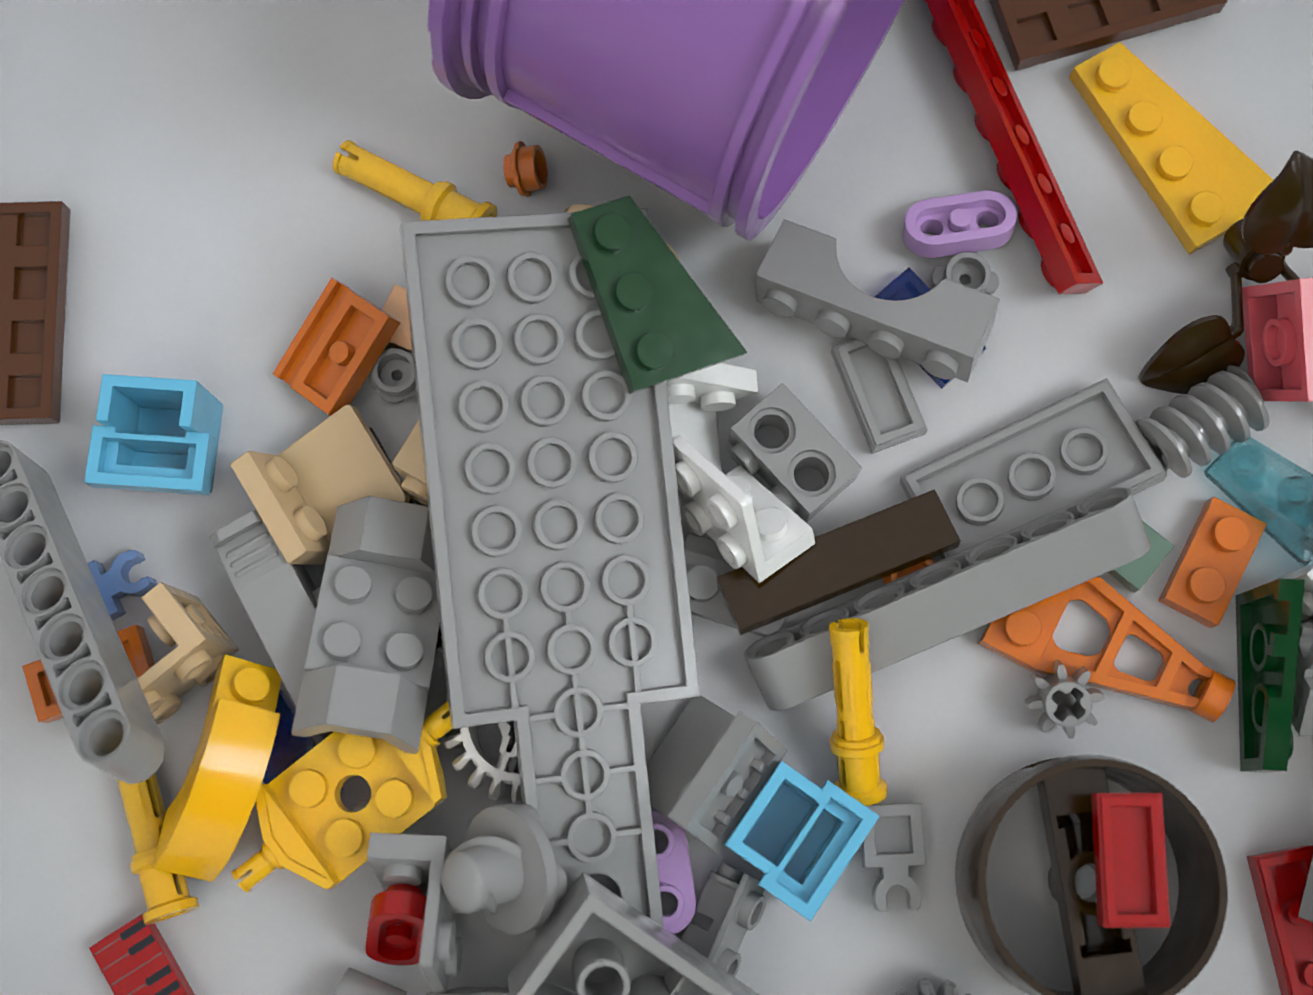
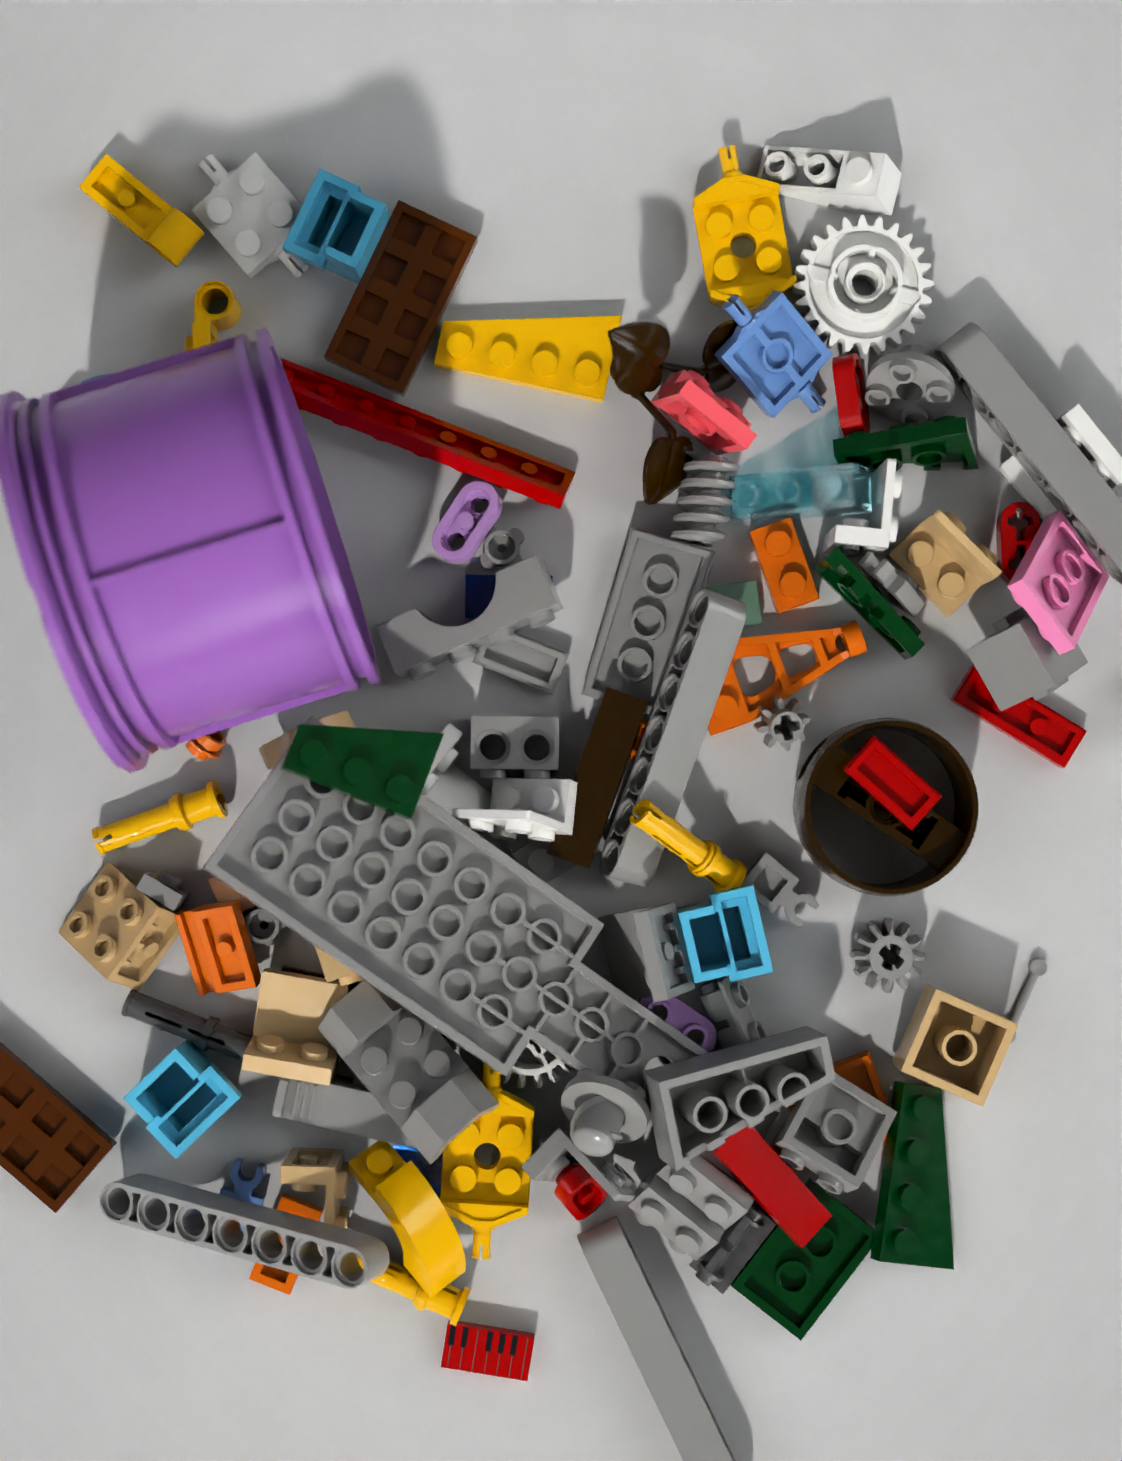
camera: 50 degrees left, 10 degrees up
(240, 408) = (203, 1031): none -> dark grey pin
(274, 248) = (120, 929): none -> tan bracket
(349, 250) = (164, 888): none -> light grey plate

